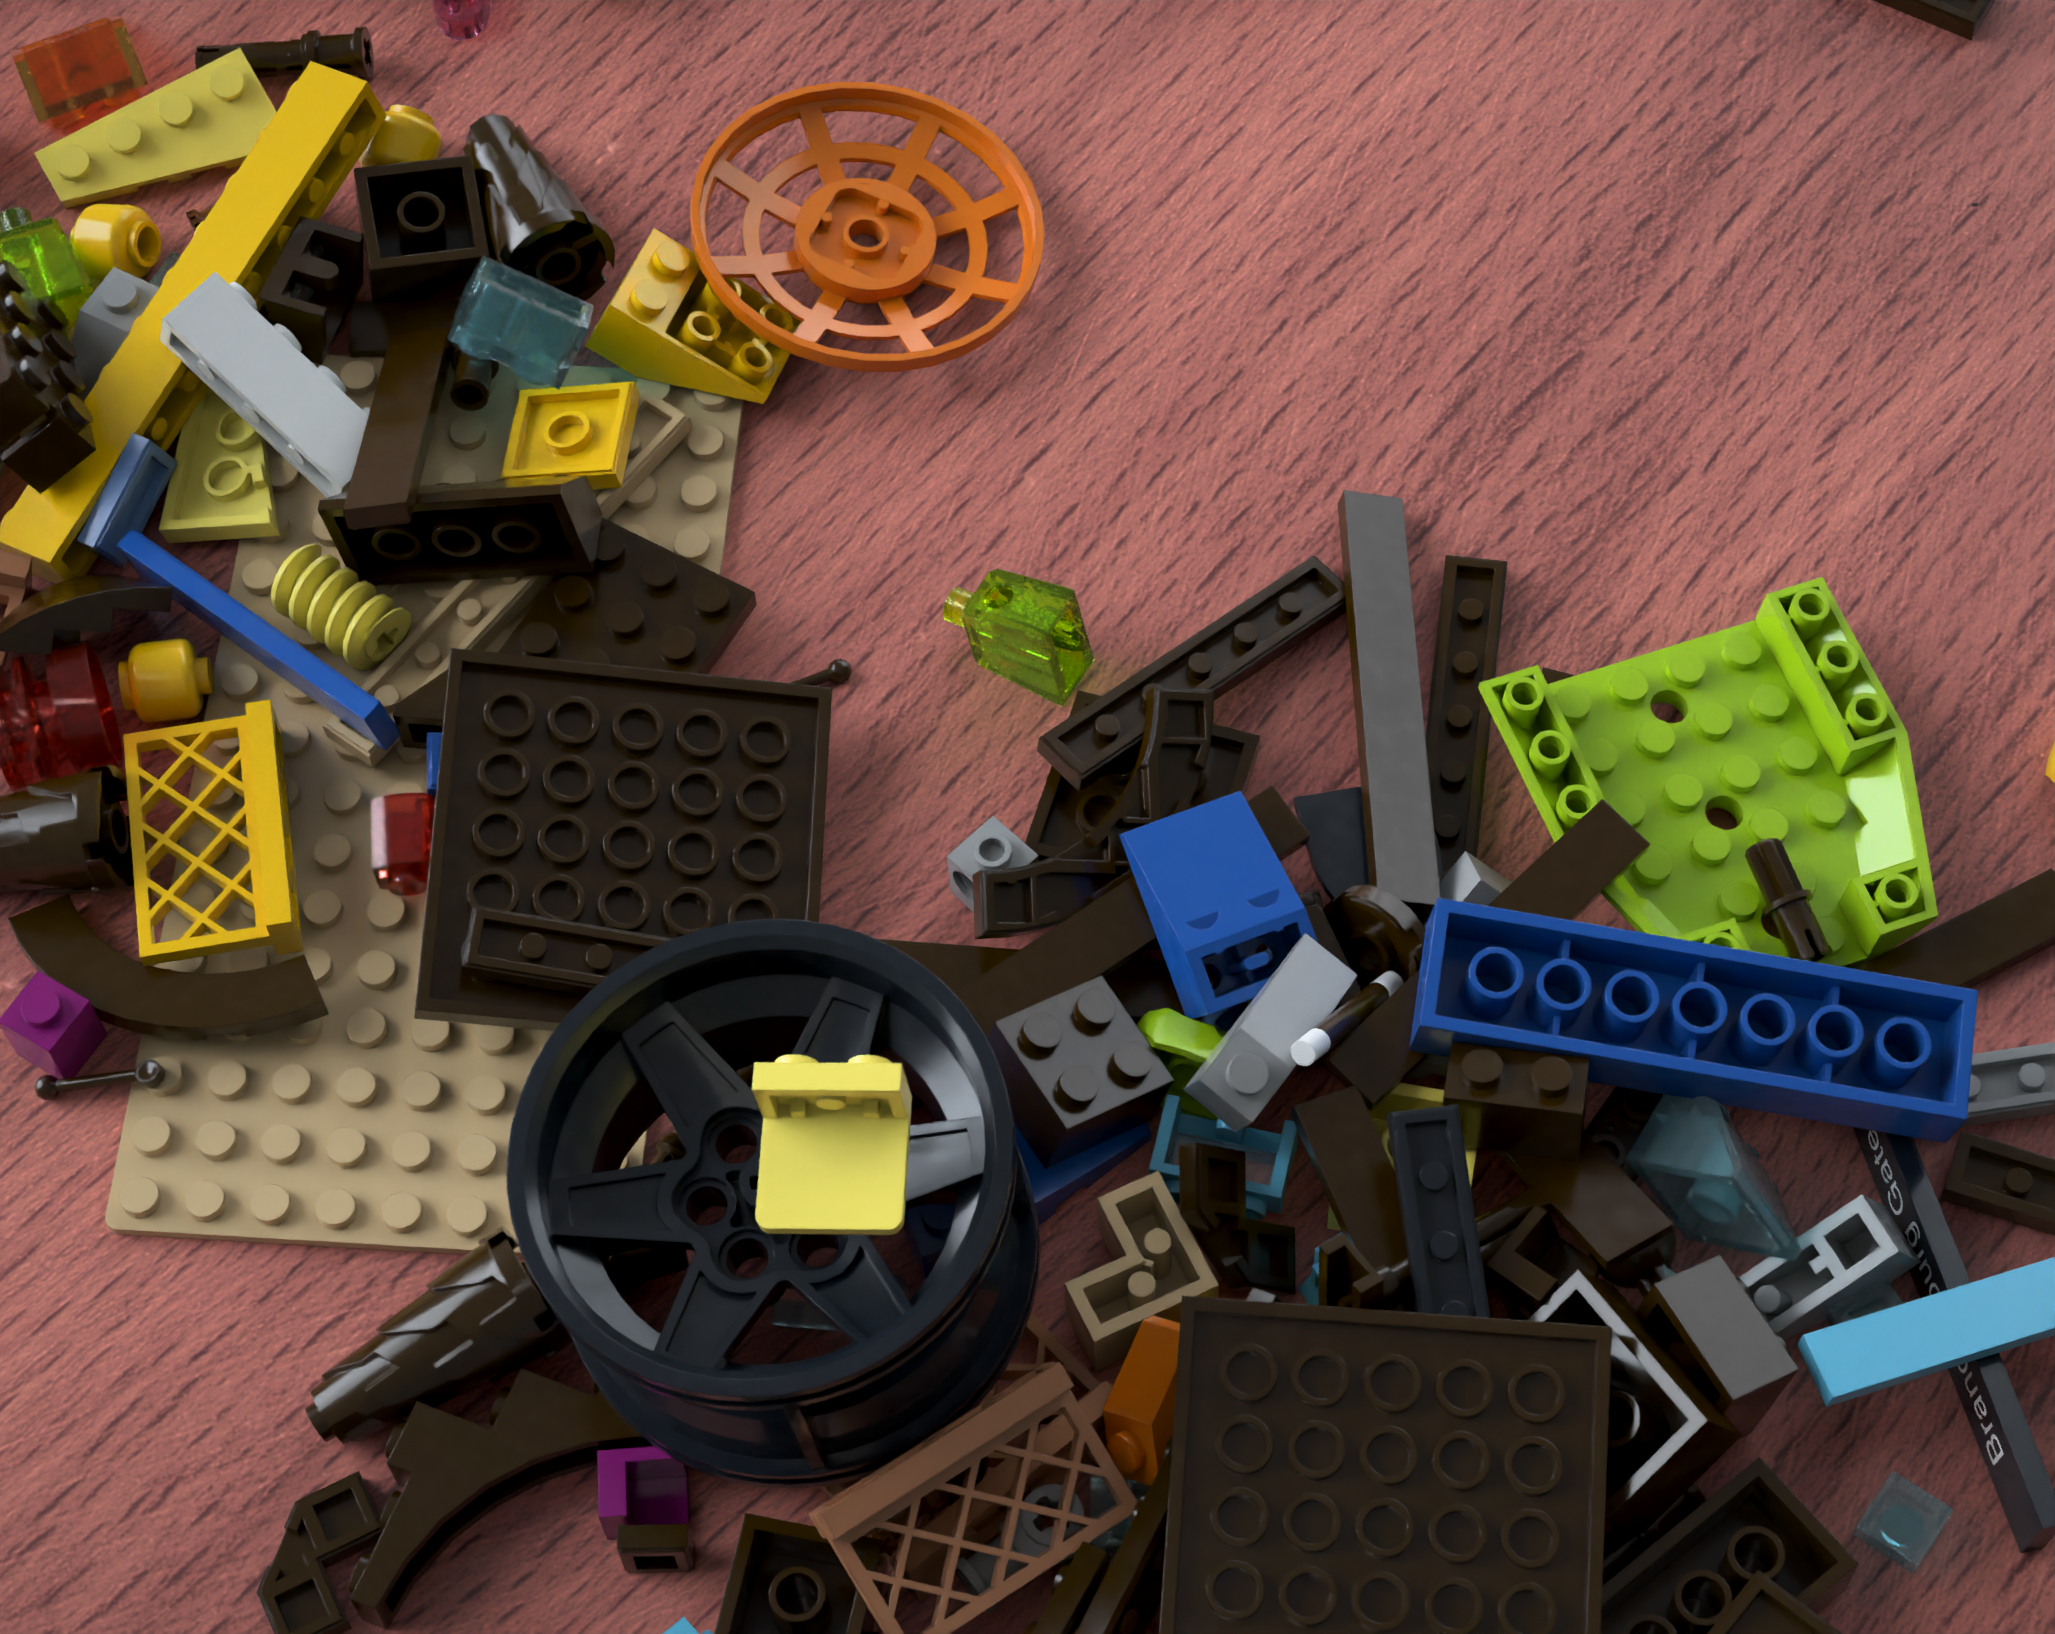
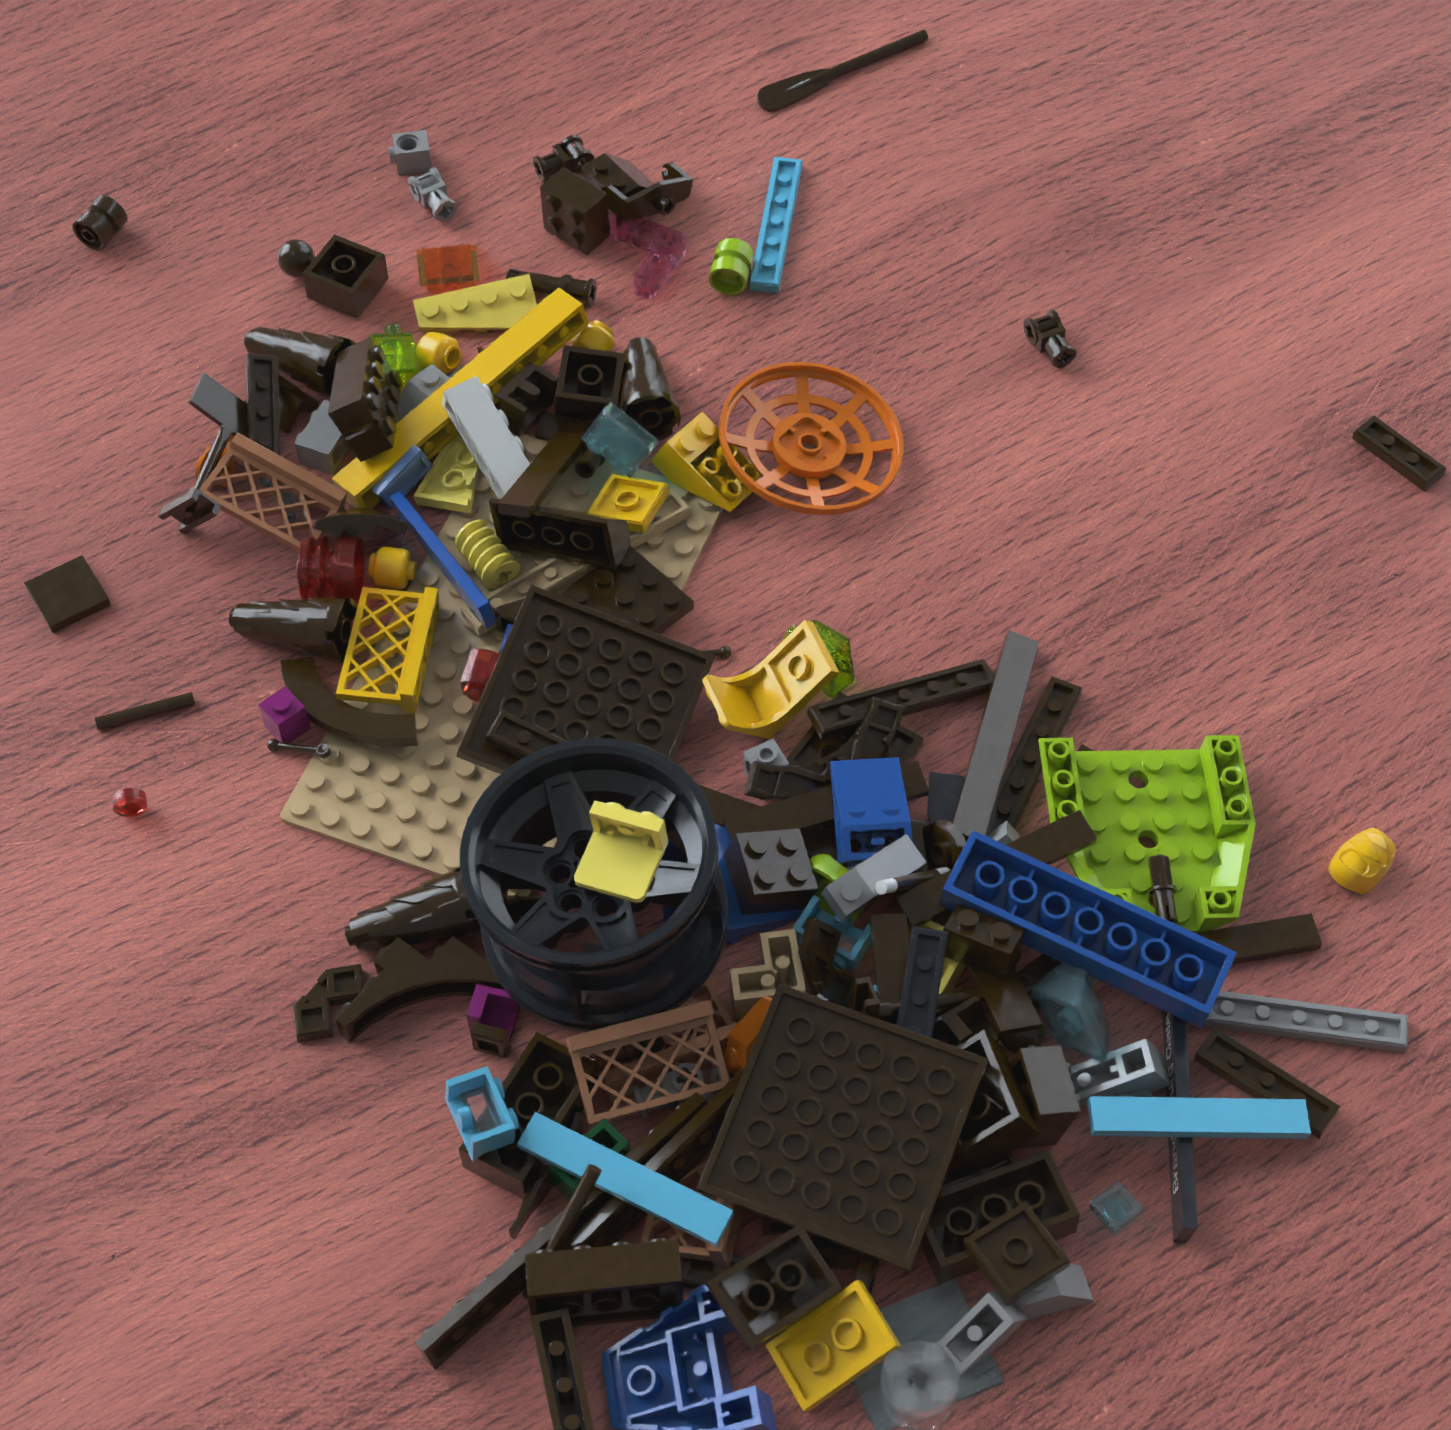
camera: 15 degrees right, 5 degrees down
(964, 715) = (776, 688): none -> yellow bracket

